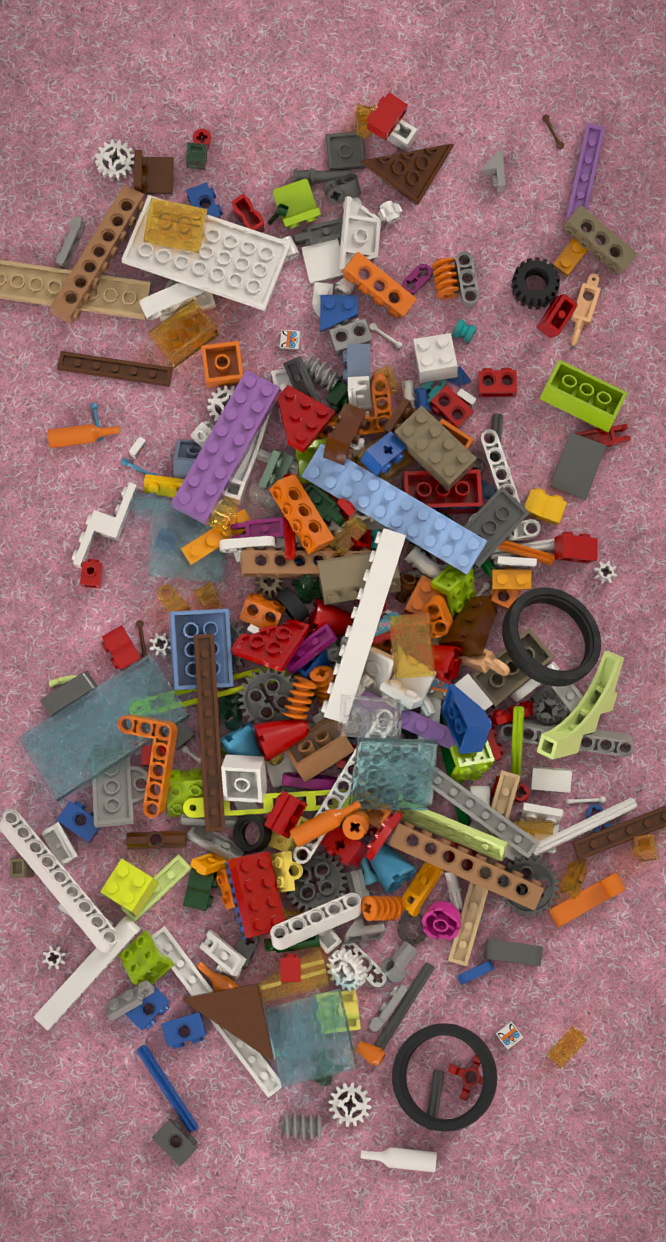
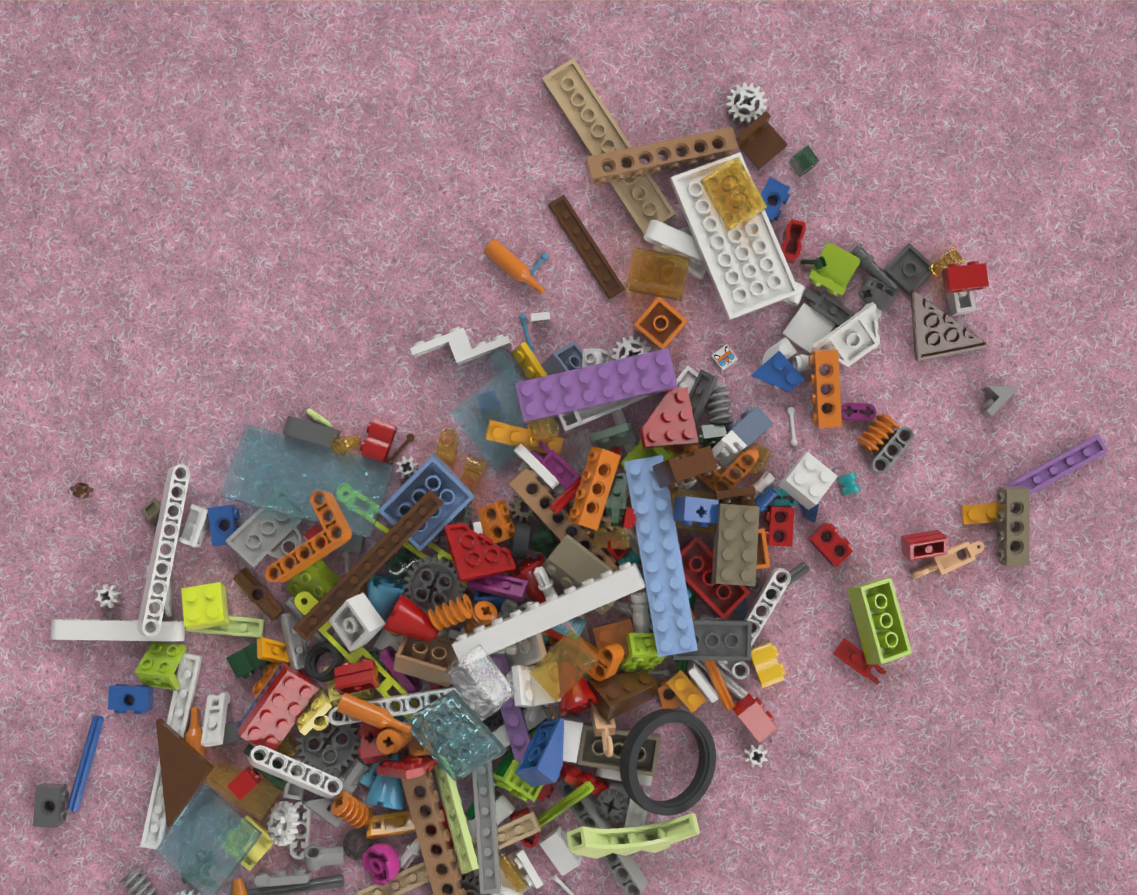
camera: 50 degrees right, 5 degrees up
(70, 243) = (652, 128): light grey hinge -> none
(91, 573) = (415, 368): red brick -> none
(101, 676) = (344, 444): none -> clear yellow cone
(128, 1000) = (121, 680): light grey hinge -> none
(172, 1028) = (125, 739): blue brick -> none
(205, 135) = (819, 148): red bush -> none
(339, 612) = (544, 582): none -> white axle
(348, 331) = (766, 404): light grey brick -> none
(389, 212) = (891, 345): white gear -> none
(408, 584) = (614, 614): reddish brown cone -> none
(467, 398) = (798, 532): white tile -> none
(540, 269) = (950, 501): black tyre -> none
(560, 145) = (1061, 428): reddish brown hinge -> none
(578, 465) = (821, 662): dark grey tile -> none

